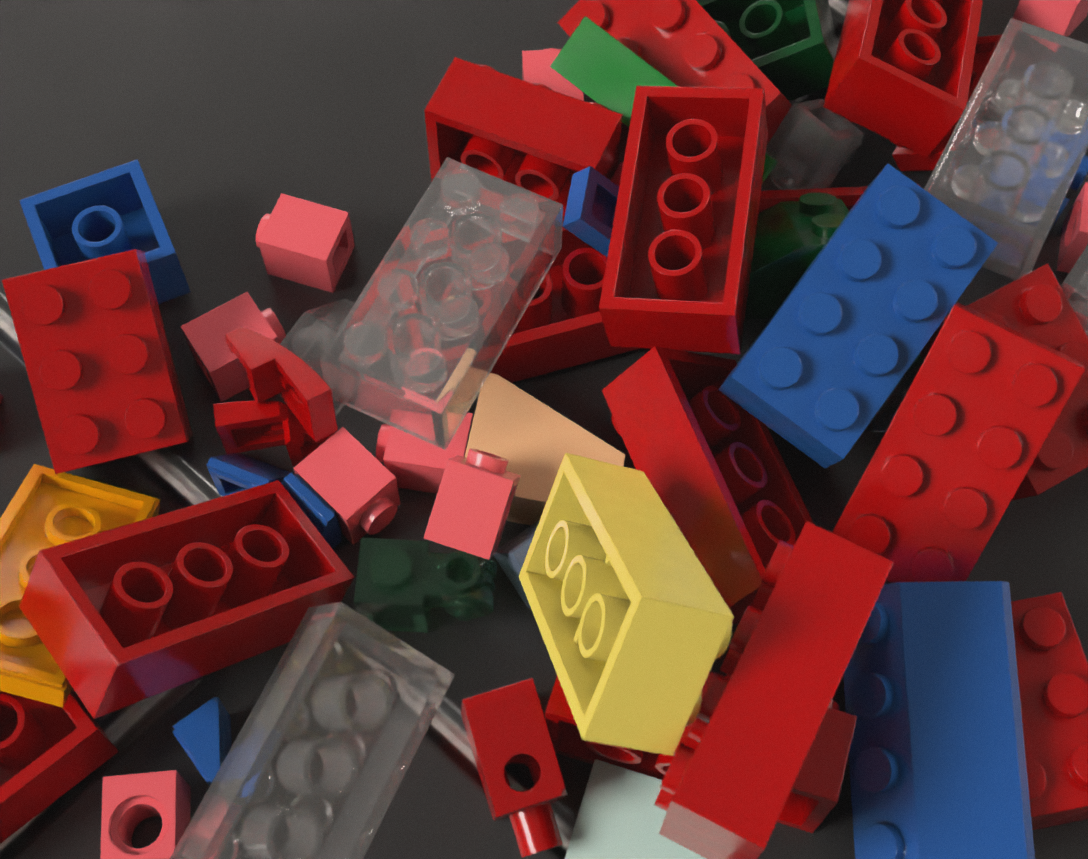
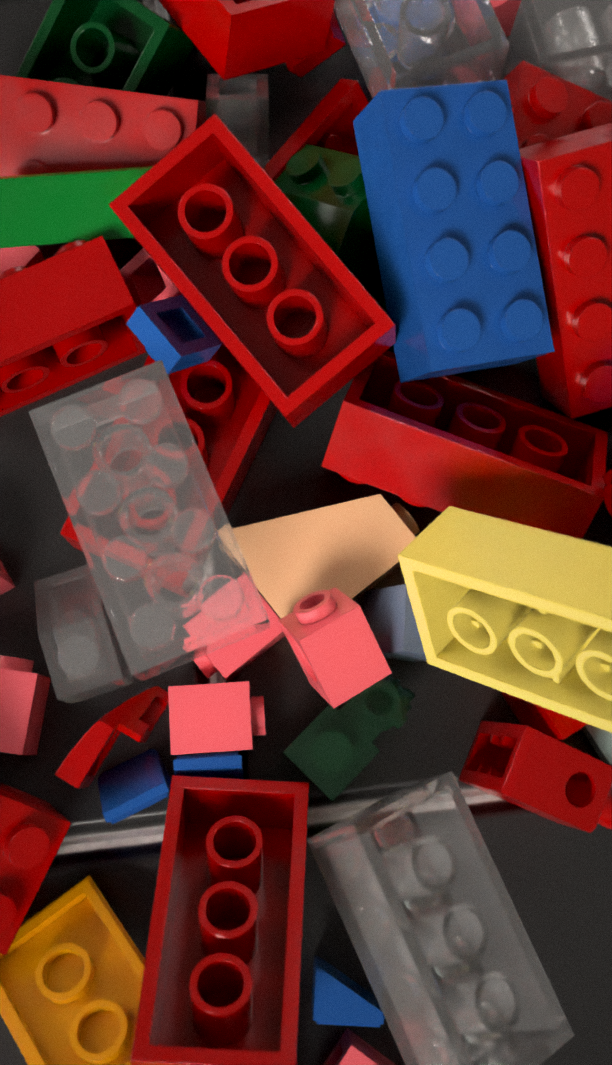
camera: 55 degrees left, 15 degrees up
(277, 370) = (74, 706): red slope -> none

